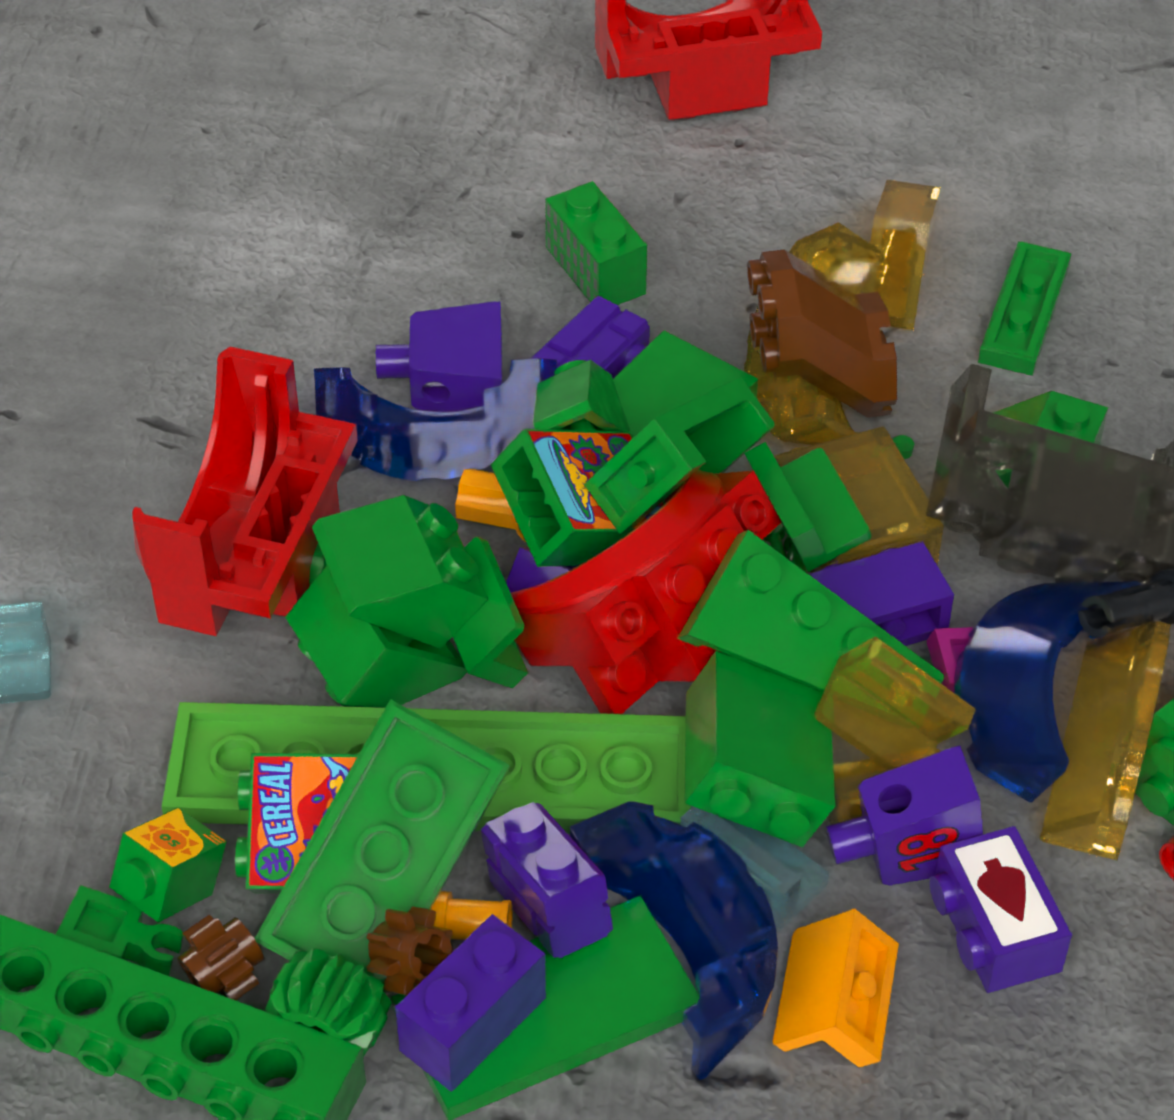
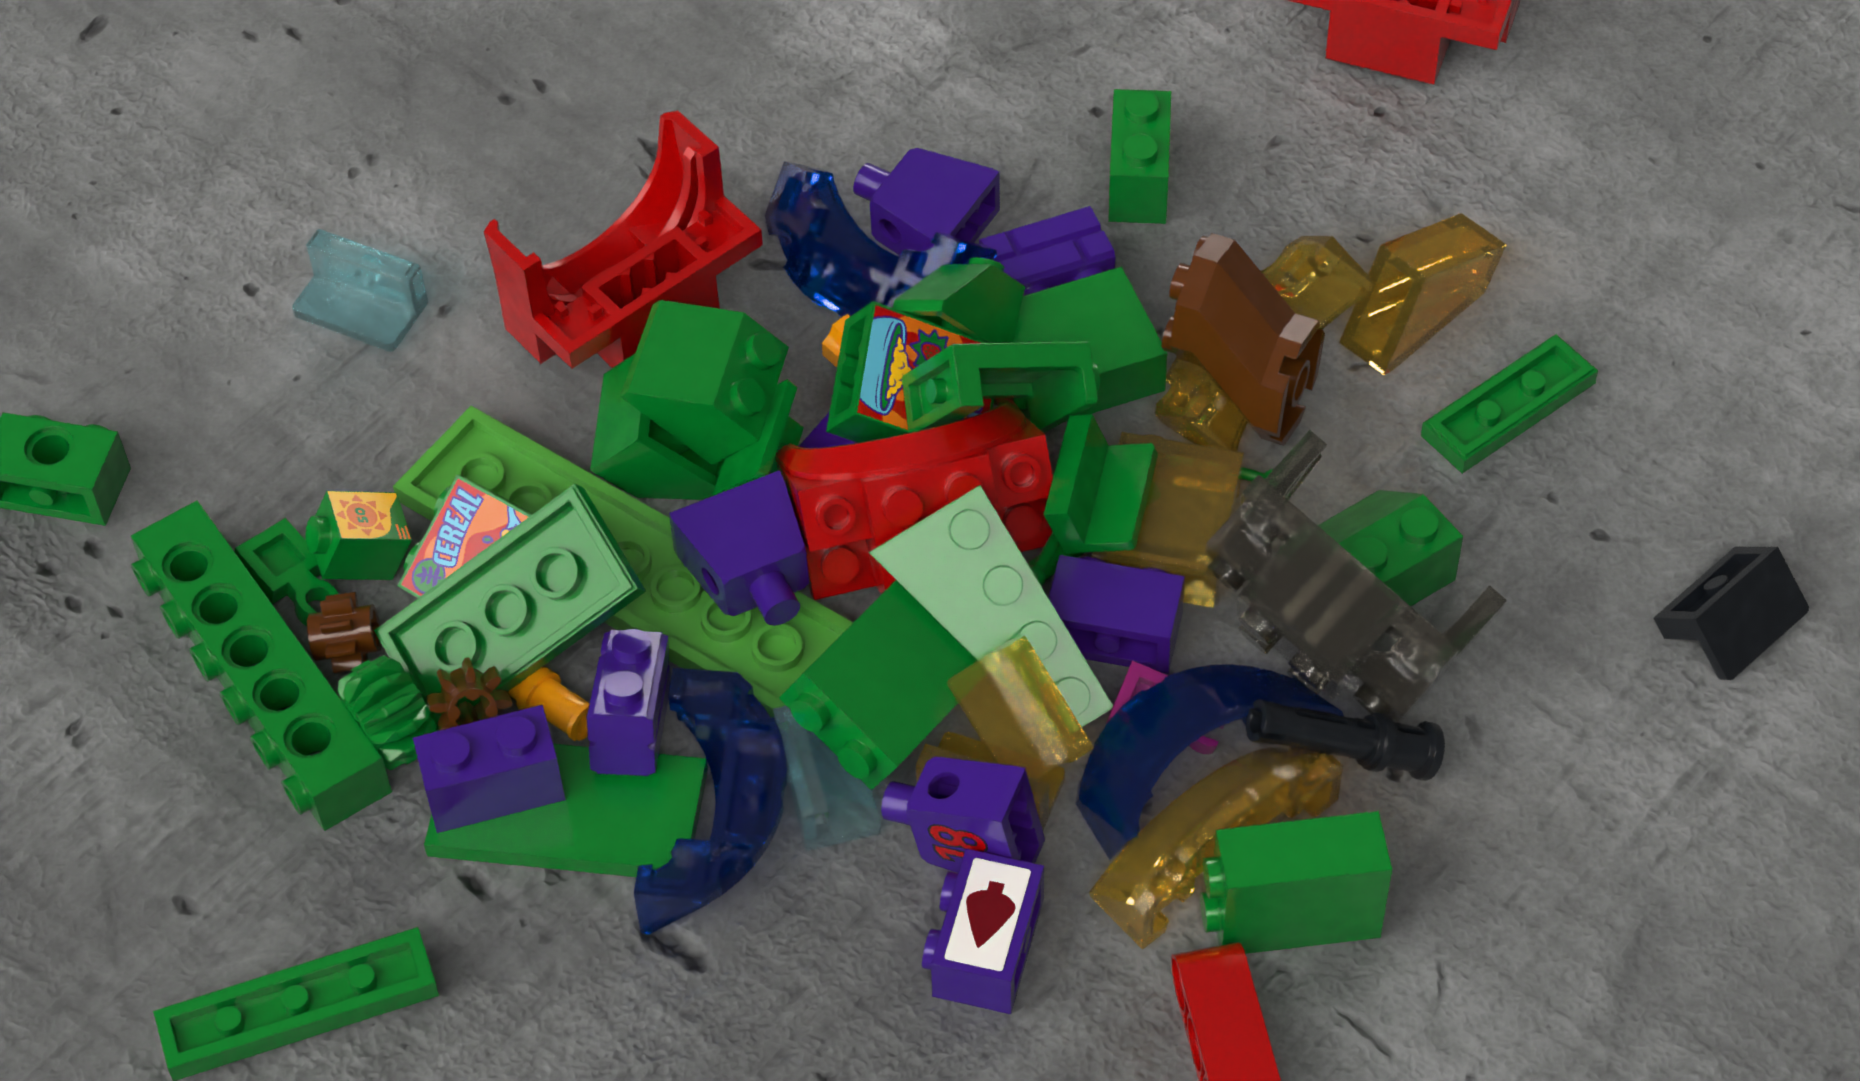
camera: 35 degrees right, 5 degrees up
(547, 696) = (745, 548): none -> dark purple torso
(838, 987) = (805, 923): light orange panel -> none

